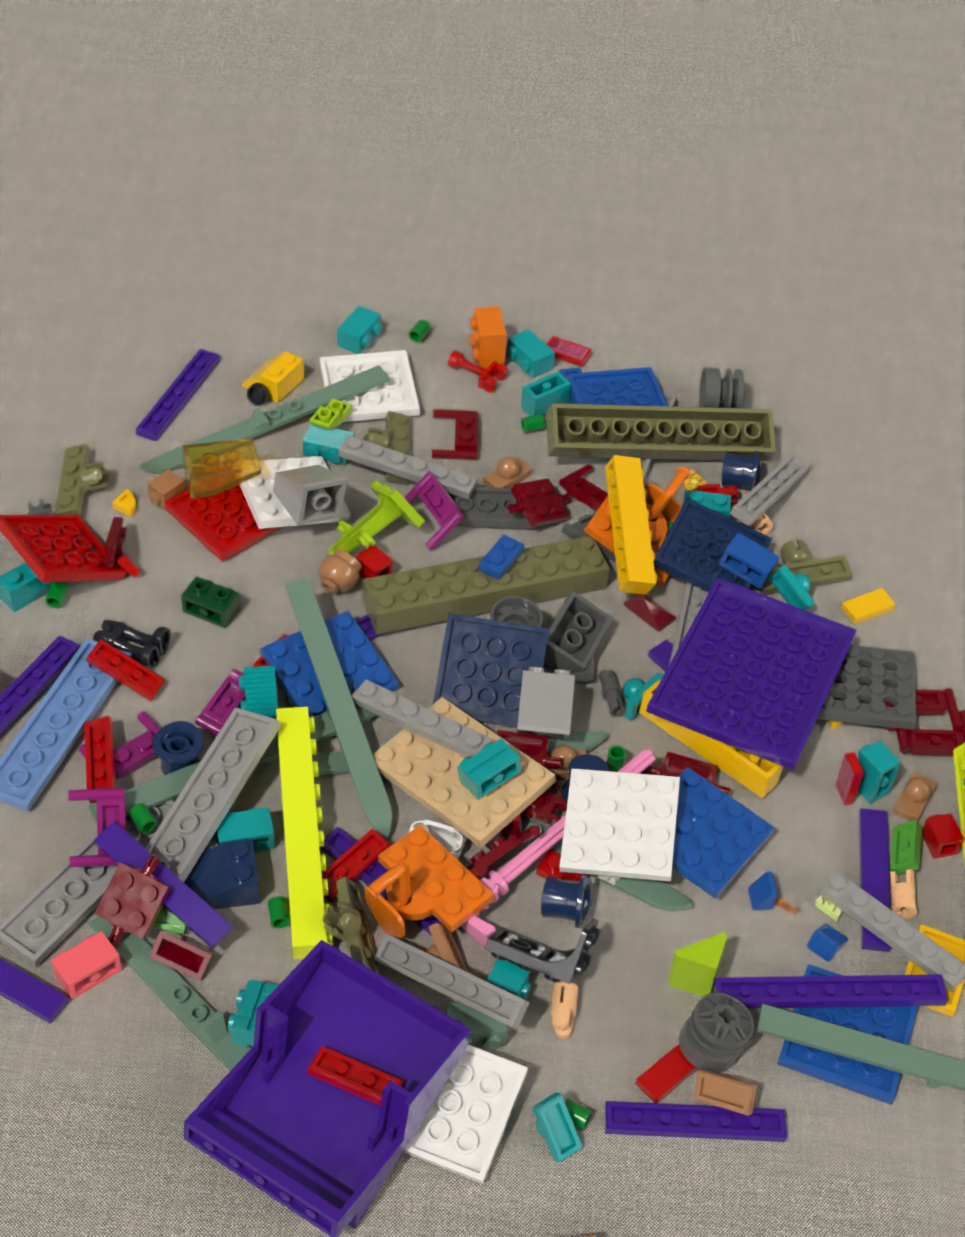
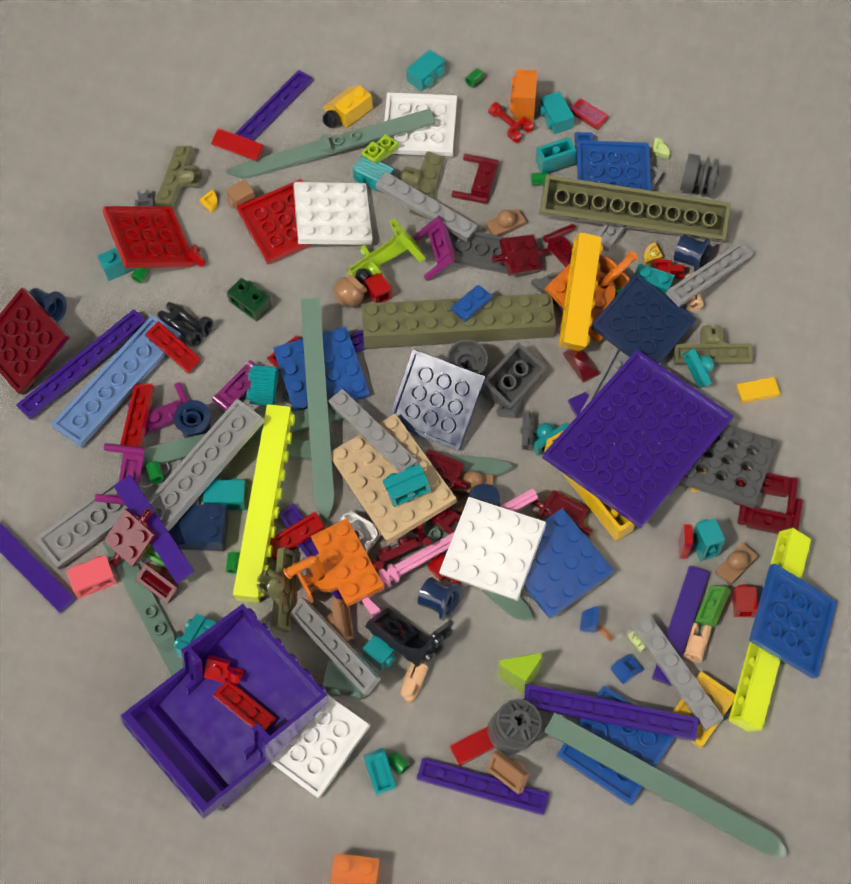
camera: 20 degrees right, 15 degrees up
(114, 541) = (190, 236): dark red hinge -> none
(146, 436) = (237, 144): none -> red tile
(219, 465) = (280, 184): clear yellow slope -> none
(307, 1034) = (219, 670): none -> red plate
(310, 493) = (341, 222): light grey slope -> none
(352, 549) = (362, 274): none -> black hinge
(546, 703) = (468, 436): light grey slope -> none
(616, 758) = (513, 493): green hinge -> none
(663, 376) = (660, 149): none -> yellowish green tile
(749, 560) = (667, 338): blue brick -> none

